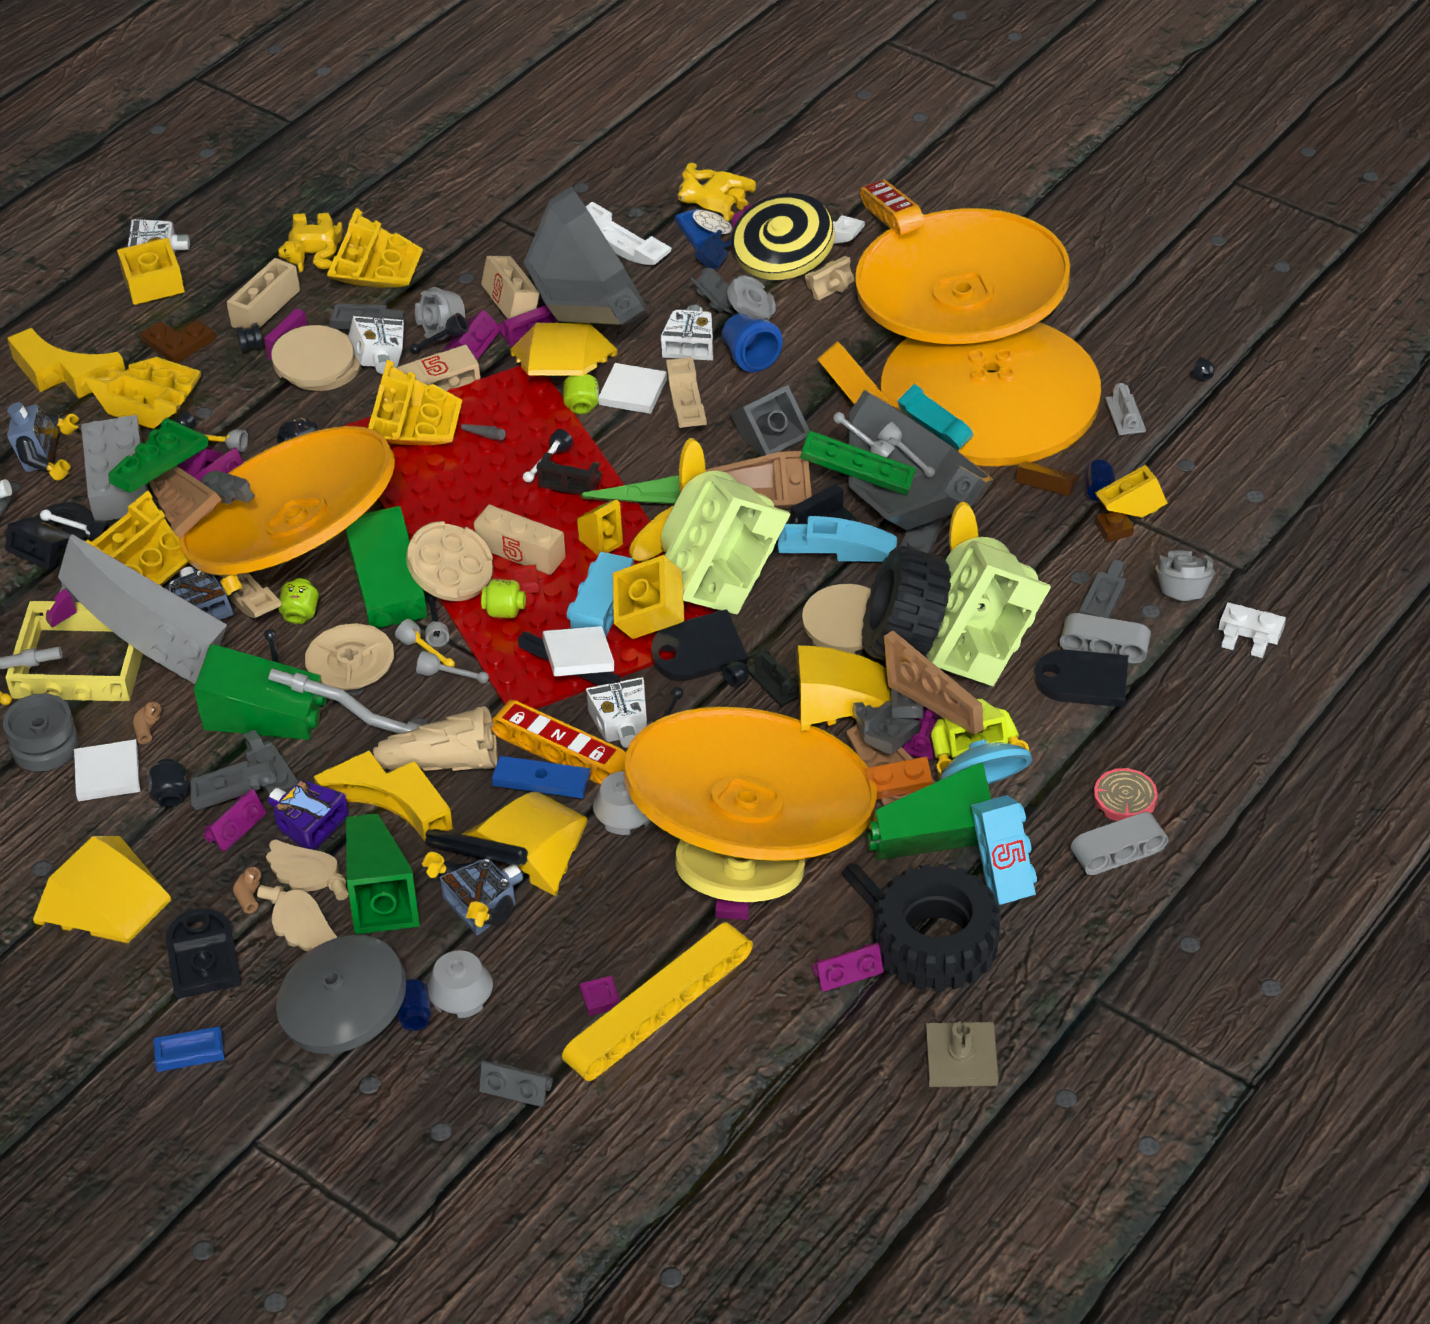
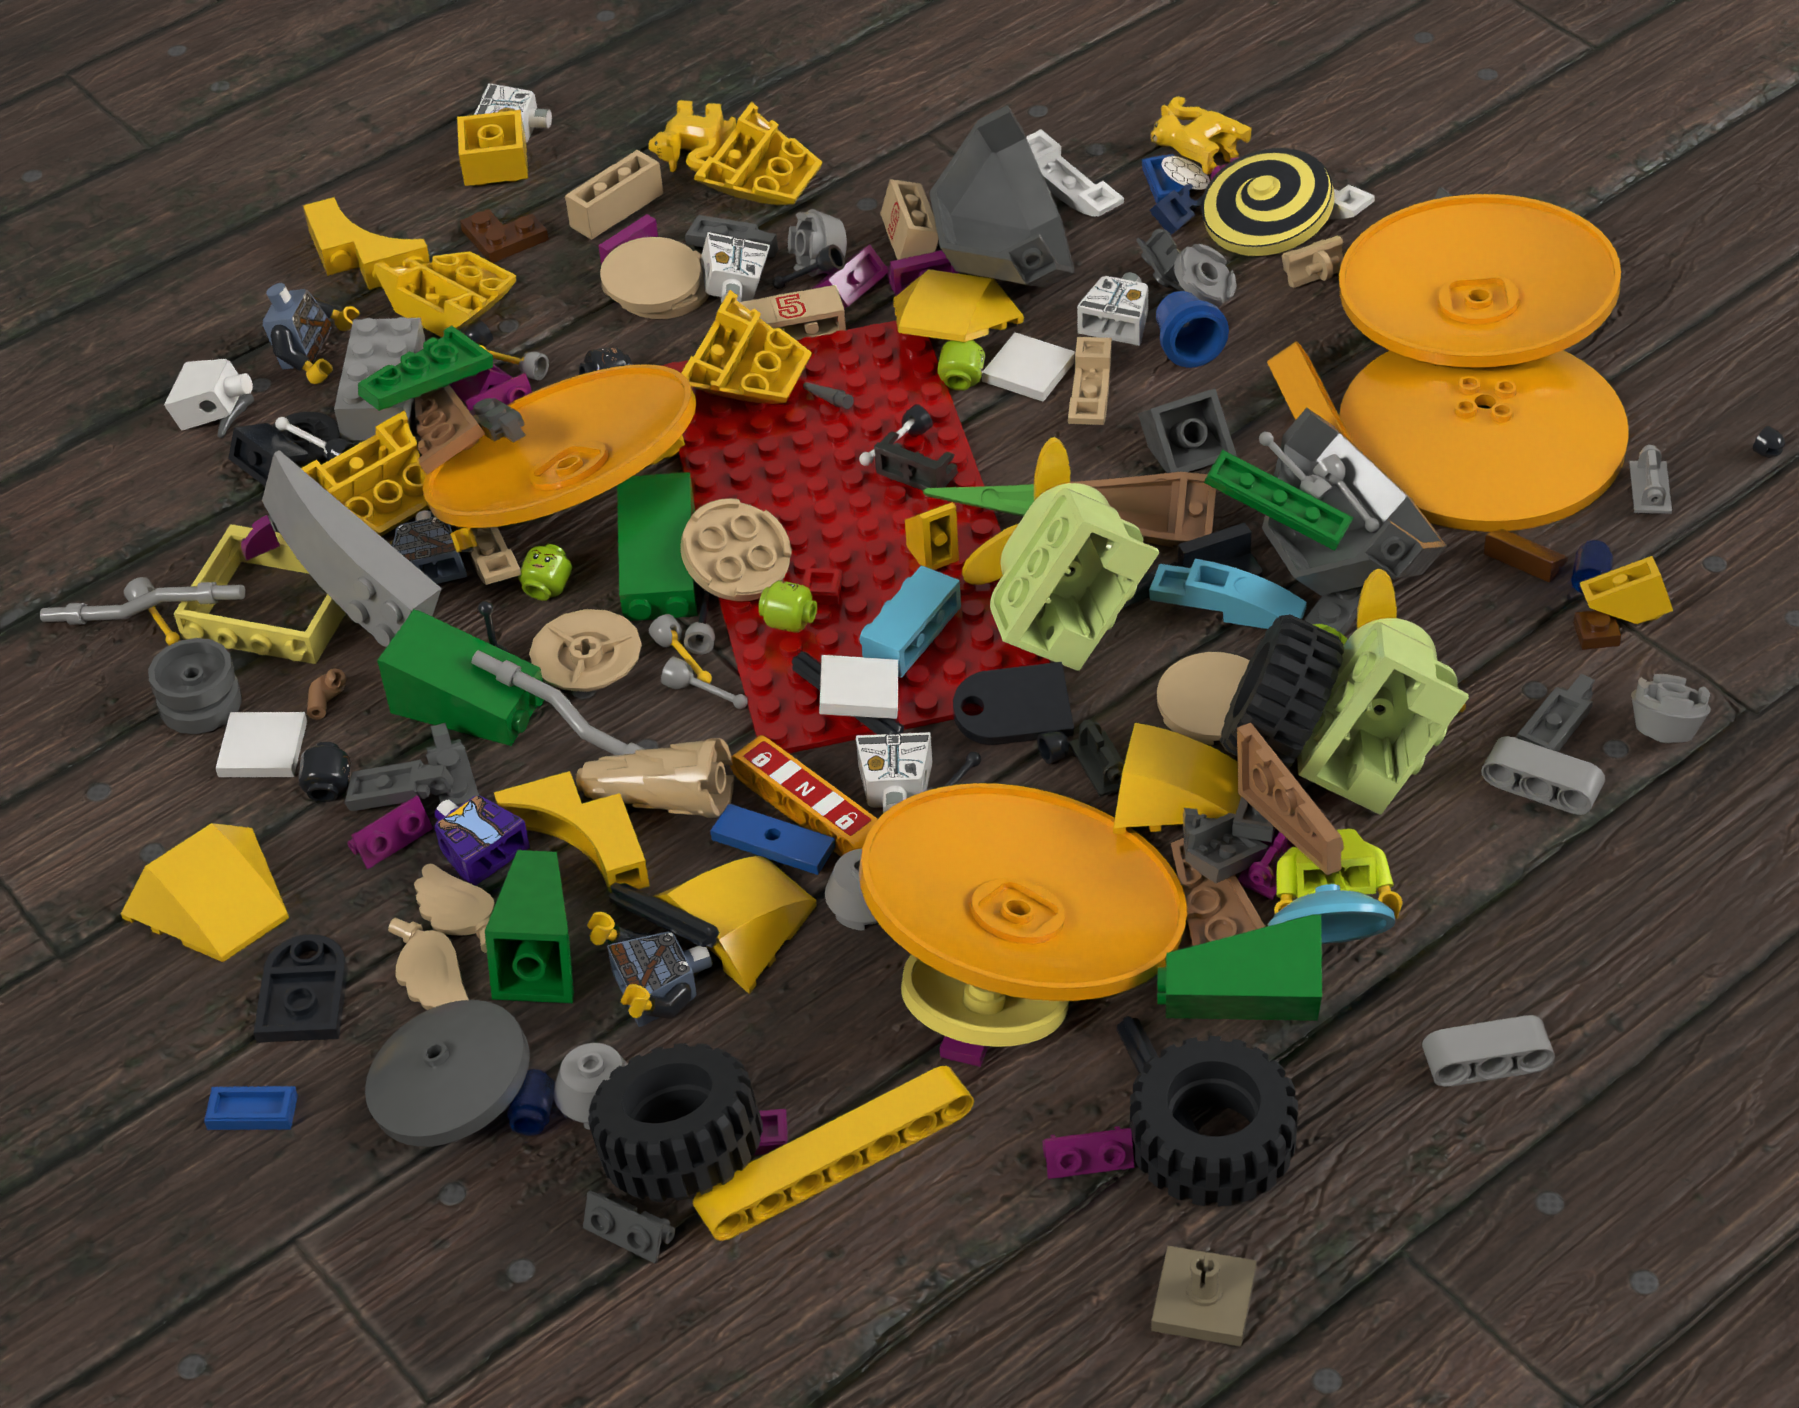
camera: 15 degrees right, 0 degrees up
(246, 887) = (377, 918): medium nougat arm -> none
(249, 337) = (584, 242): black wheel -> none
(521, 539) = (831, 535): tan brick -> none
(536, 998) = (675, 1122): none -> black tyre
(648, 597) = (961, 631): yellow brick -> none
(892, 207) = (1413, 182): light orange beam -> none
(900, 777) = (1220, 914): orange plate -> none
(934, 417) = (1392, 456): teal leg -> none
(1004, 848) = (1325, 1033): medium azure brick -> none
(1083, 677) = (1502, 822): black tile -> none
(1124, 793) = (1515, 985): tile -> none
(1251, 623) = (1747, 786): white plate -> none

